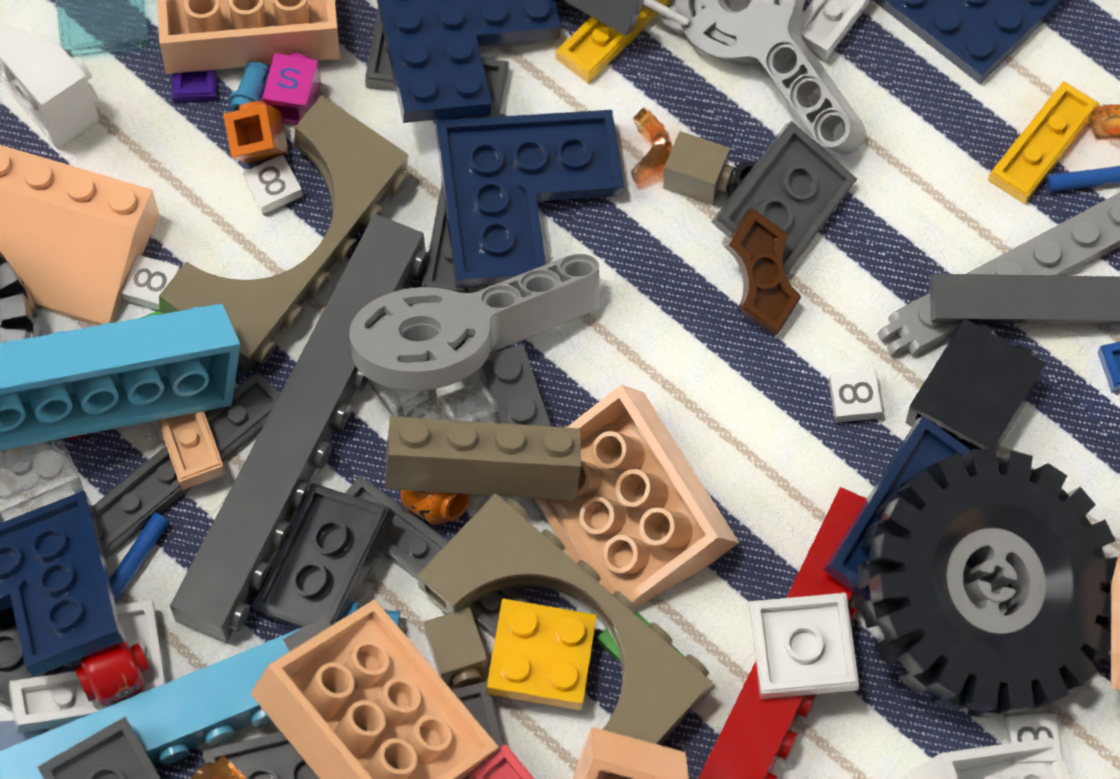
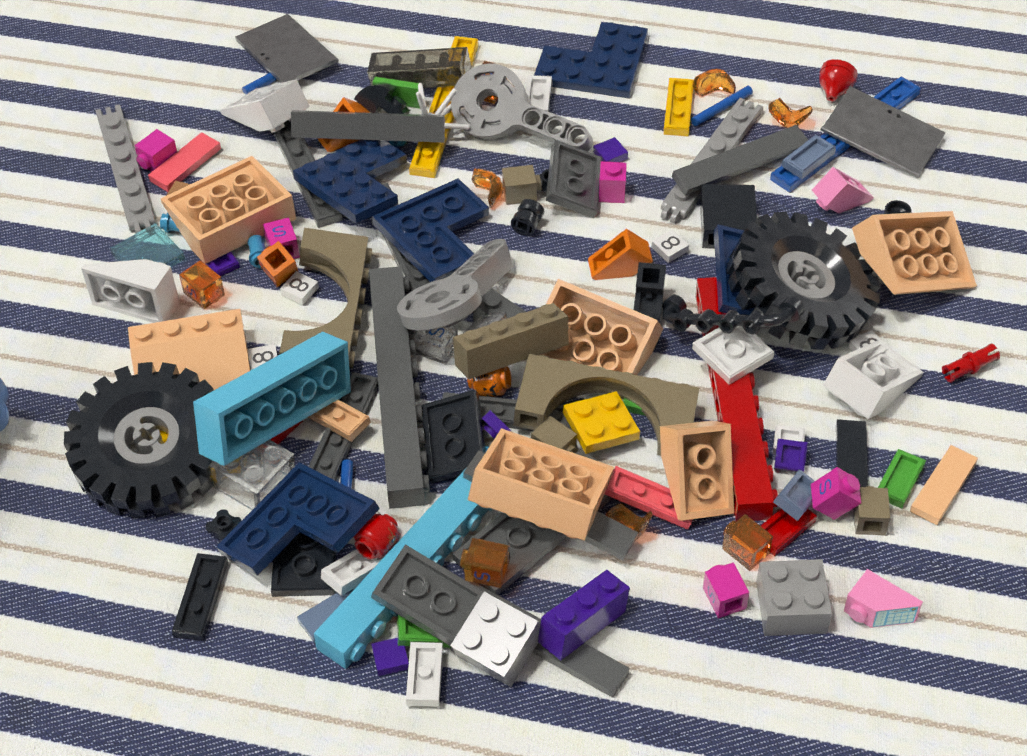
camera: 30 degrees left, 15 degrees down
(138, 111) = (202, 284): none -> clear orange brick
(391, 578) = (494, 424): none -> dark purple plate
(670, 234) = (527, 217): none -> black wheel
(758, 471) = (650, 289): none -> black brick
(761, 381) = (620, 257): none -> orange slope
(766, 291) = (595, 220): reddish brown tile -> none
(817, 602) = (677, 314): none -> black bar
(837, 237) = (612, 182): none -> dark pink brick
(879, 175) = (611, 151): none -> dark purple tile

